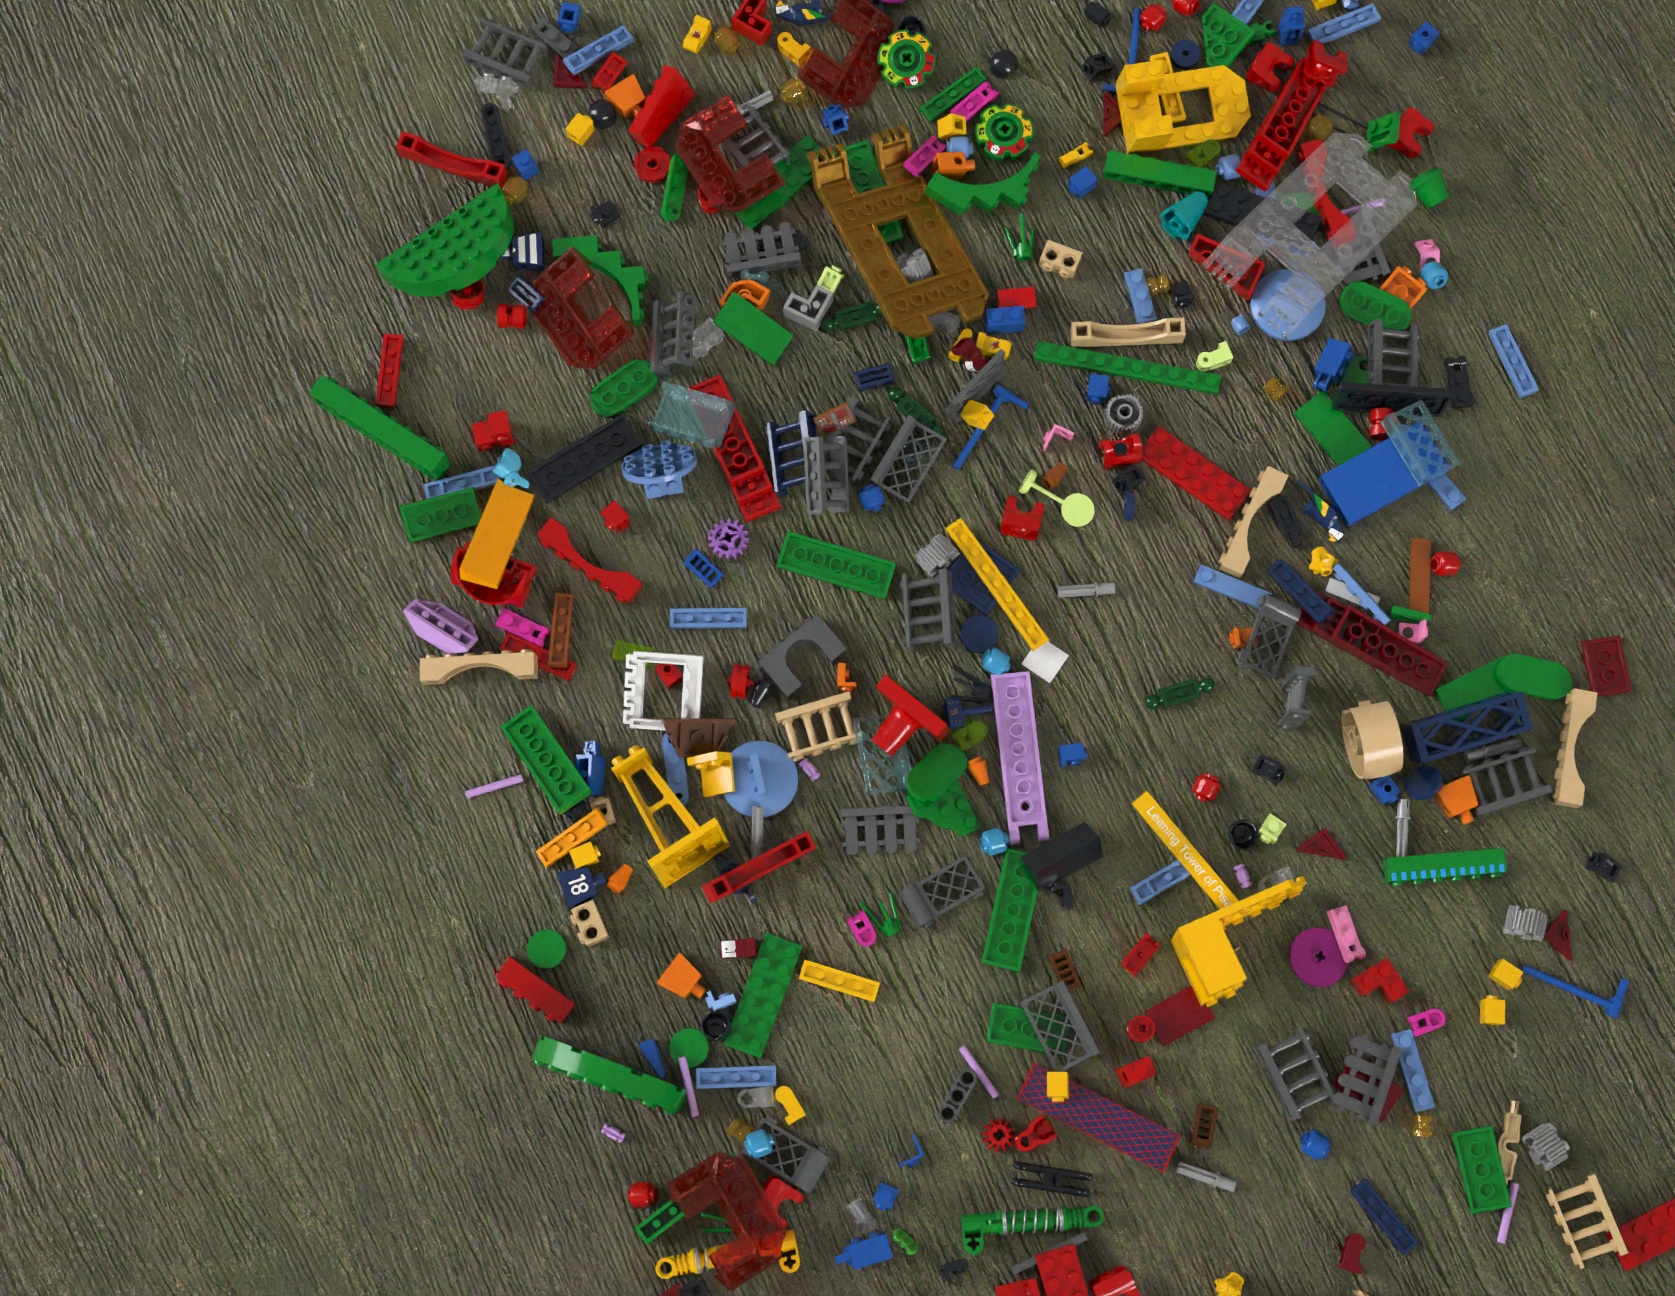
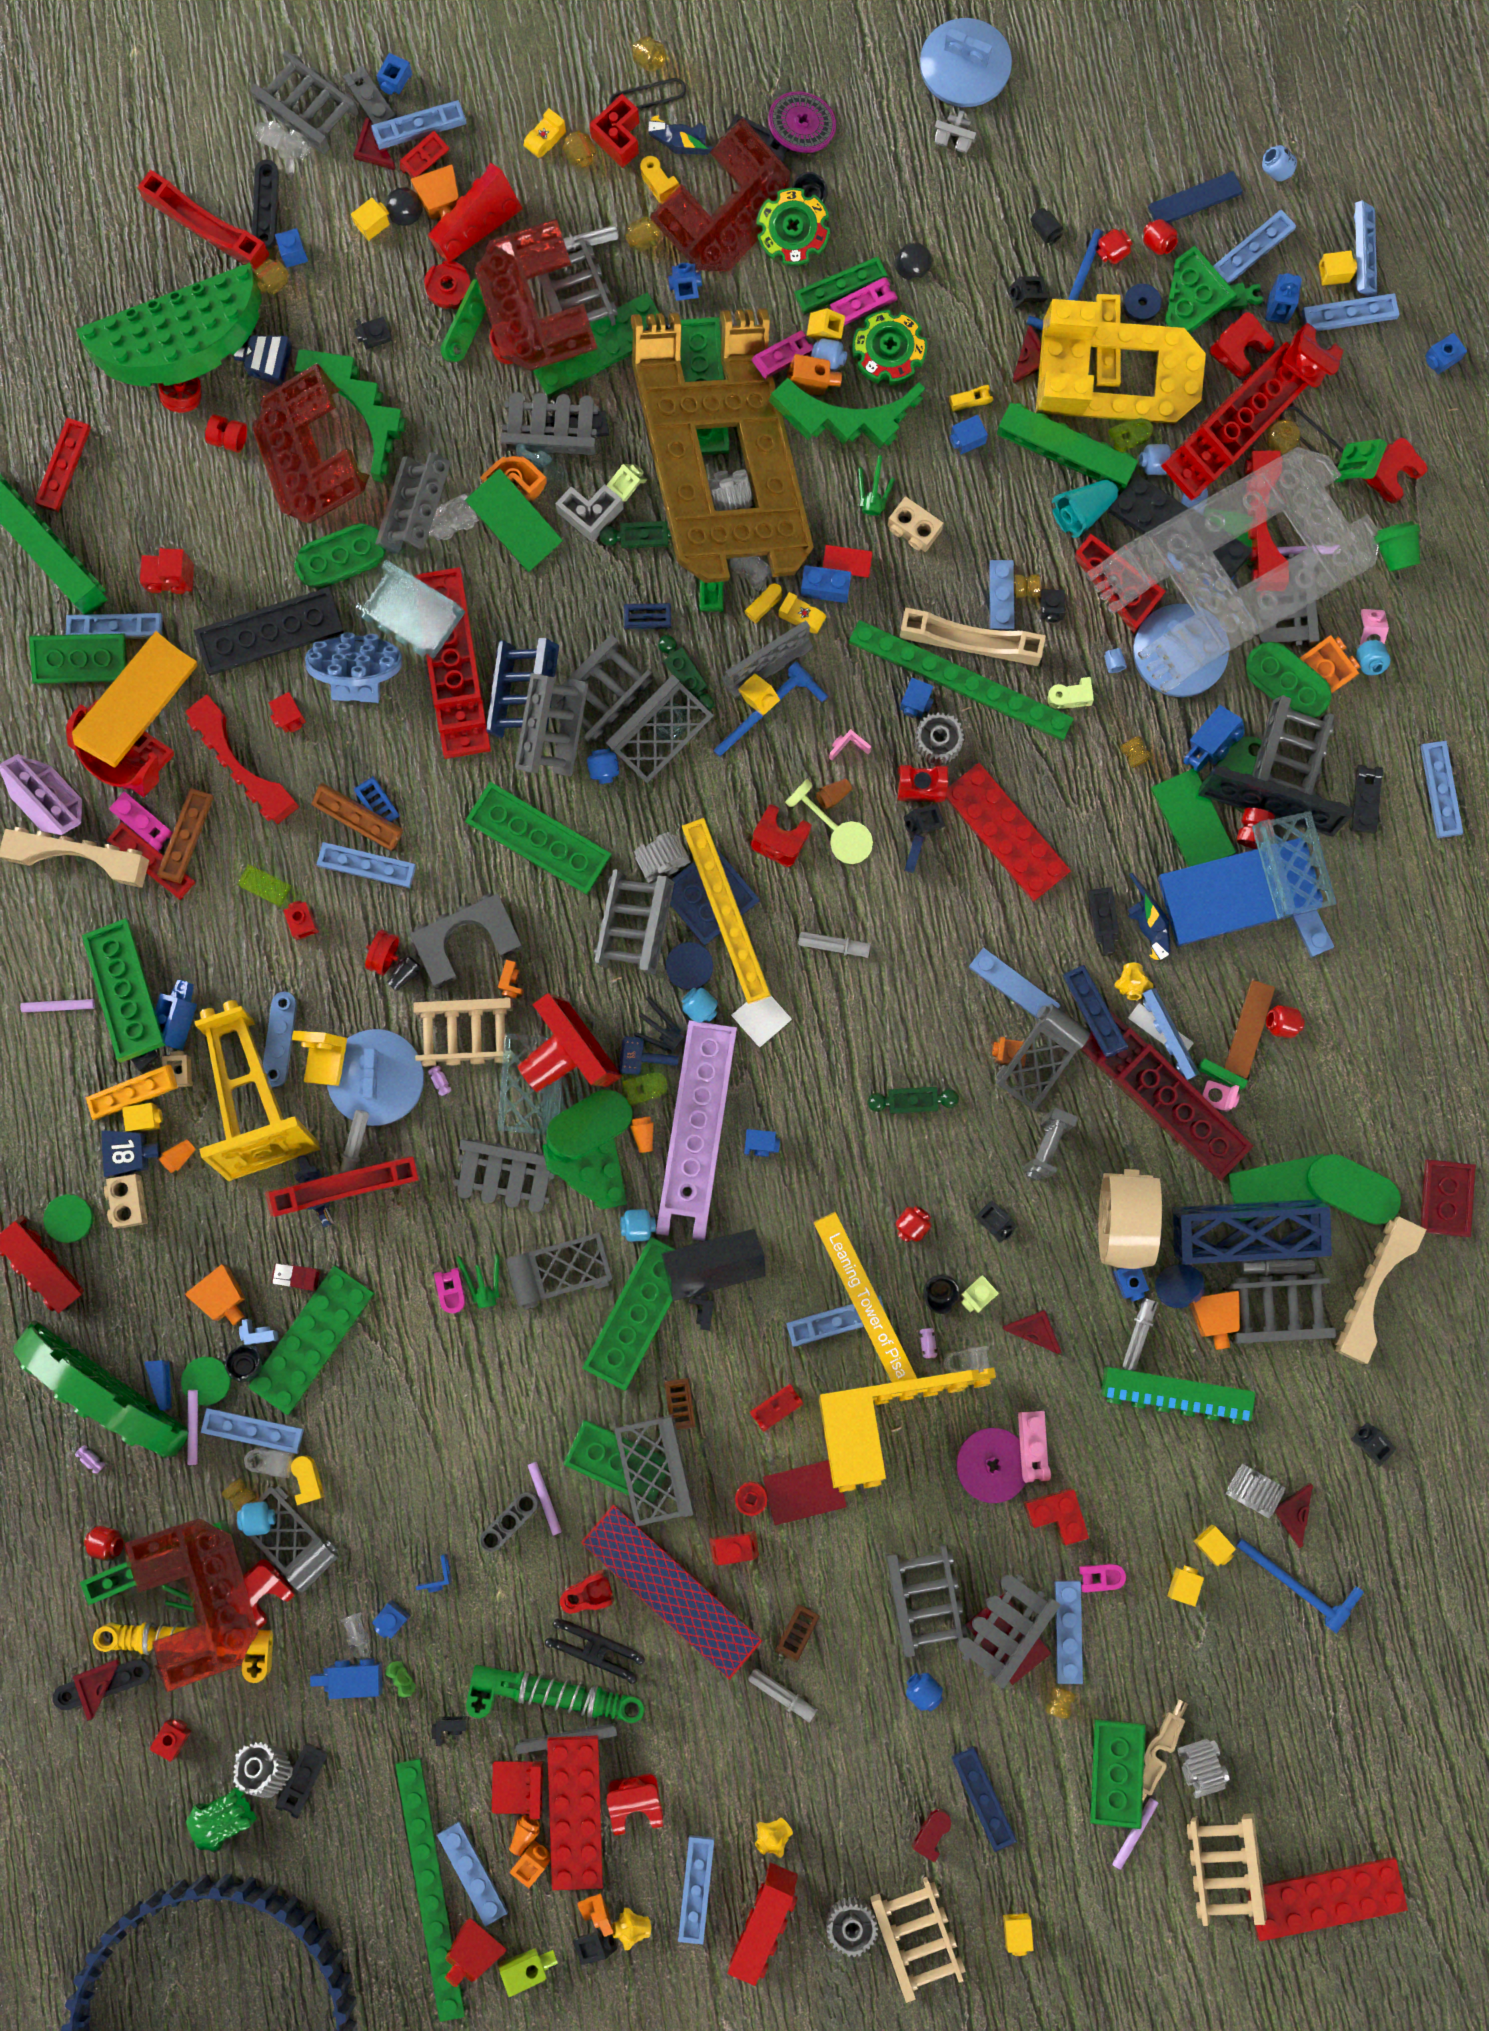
camera: 15 degrees right, 5 degrees up
(508, 468) = (173, 620): medium azure animal -> none
(540, 297) = (261, 421): dark blue tile -> none
(635, 679) = (321, 946): white hinge -> none
(691, 583) = (357, 817): none -> dark orange tile
(697, 735) = (314, 1006): reddish brown wing -> none
(721, 541) = (407, 774): medium lavender gear -> none
(834, 419) = (581, 658): slope -> none
(839, 981) = (406, 1346): yellow plate -> none
(970, 354) = (770, 615): dark red leg -> none
(1002, 1141) = (541, 1573): red gear -> none
(1058, 1086) = (631, 1542): yellow brick -> none
(1237, 557) = (1093, 874): tan arch -> none

